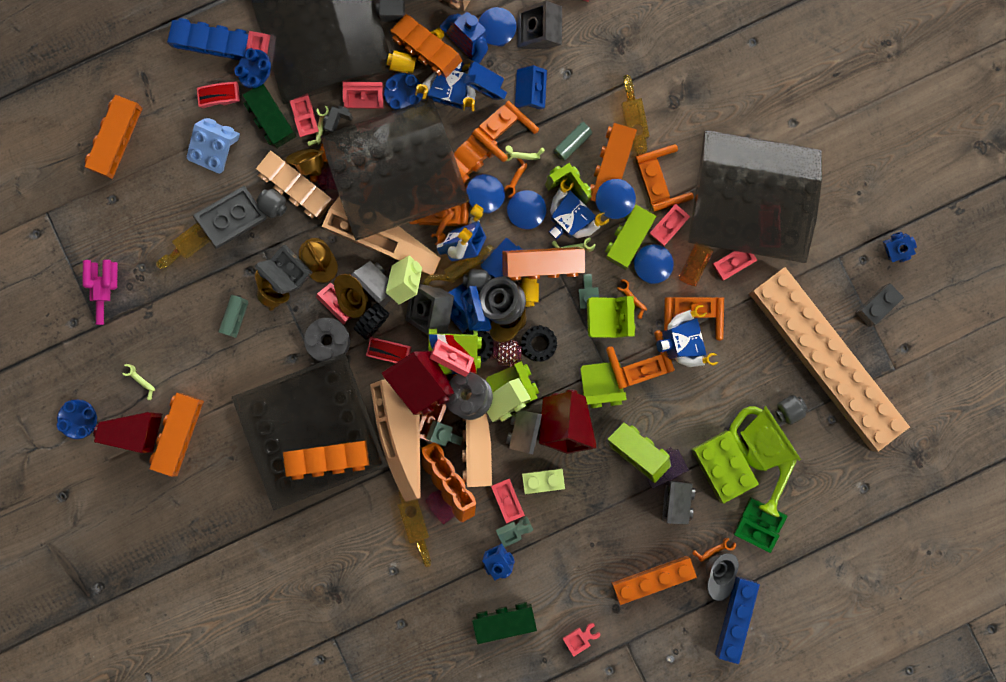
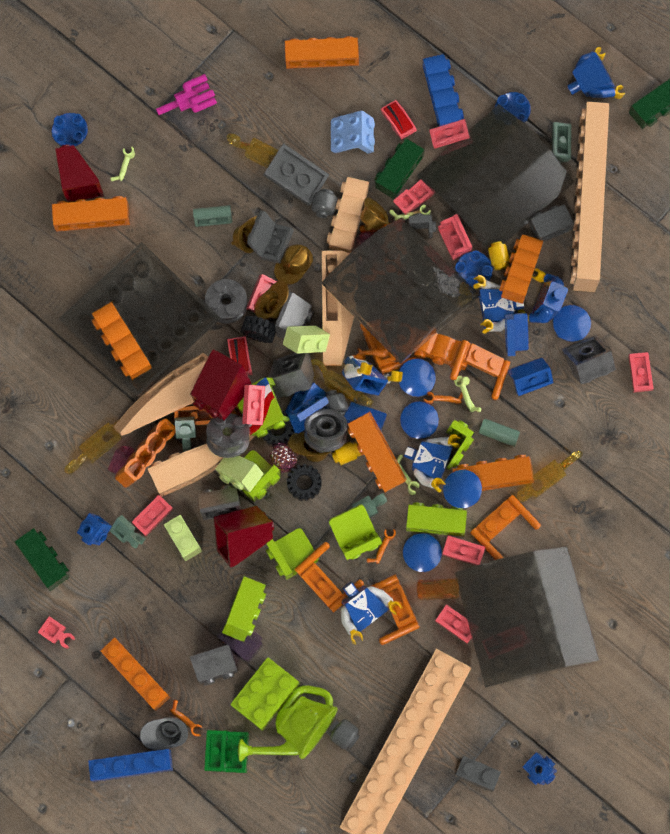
camera: 65 degrees right, 10 degrees down
(253, 68) = (433, 136): blue dish -> none

